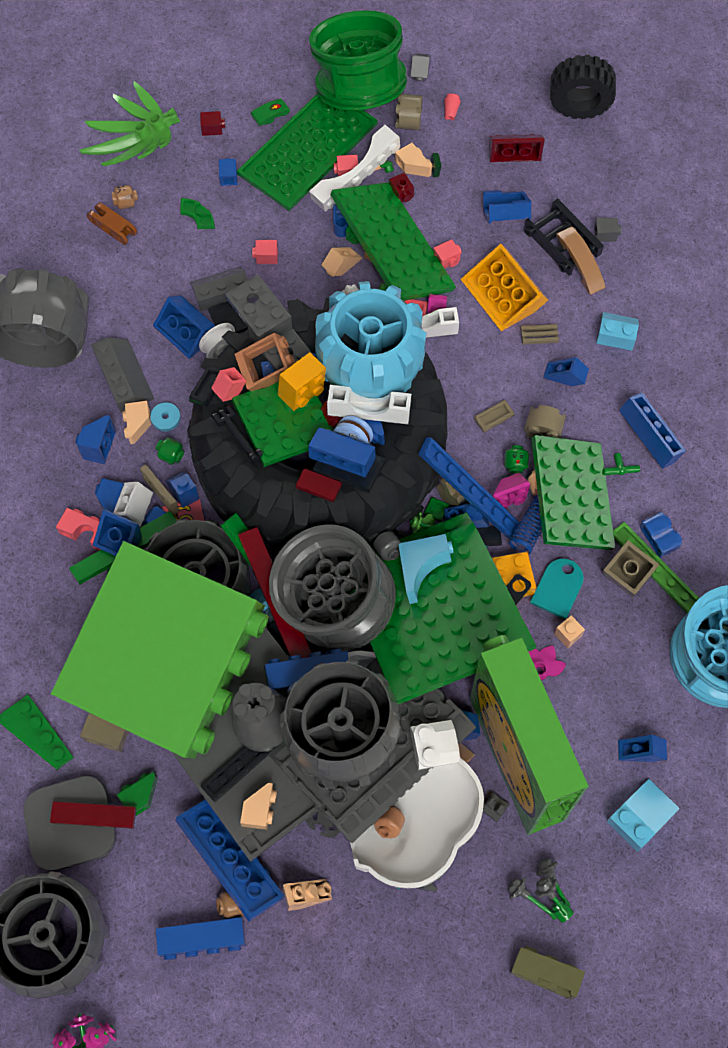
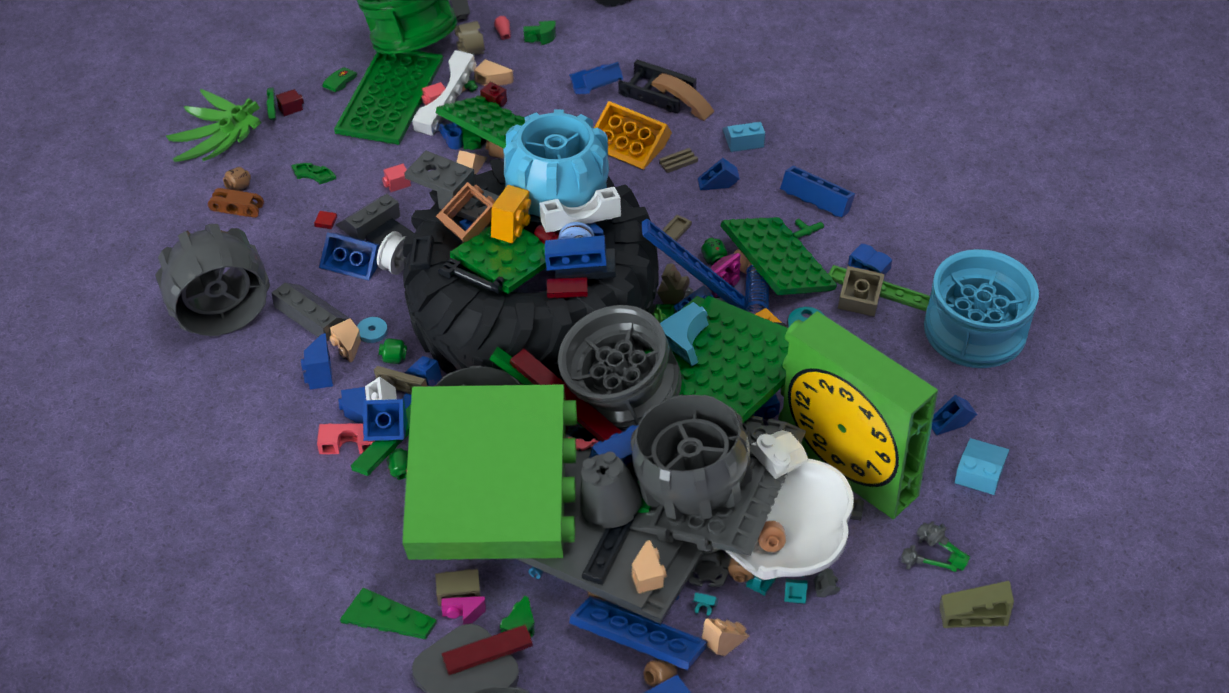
camera: 25 degrees left, 20 degrees down
(104, 760) = (469, 607): none -> dark pink slope
(182, 273) = (325, 220): none -> red tile
(192, 121) = (271, 103): none -> green tile
(228, 172) = (326, 132): blue brick -> none
(228, 384) = (442, 240): coral brick -> none
(269, 643) = (583, 445): none -> coral piece
(309, 846) = (705, 600): none -> teal tile
(436, 165) = (516, 70): dark green tile -> none
(485, 128) = (544, 32): none -> green brick
(516, 148) = (578, 37): dark red slope -> none
(544, 422) = (721, 209): dark tan brick -> none
(607, 229) = (692, 67): dark grey brick -> none

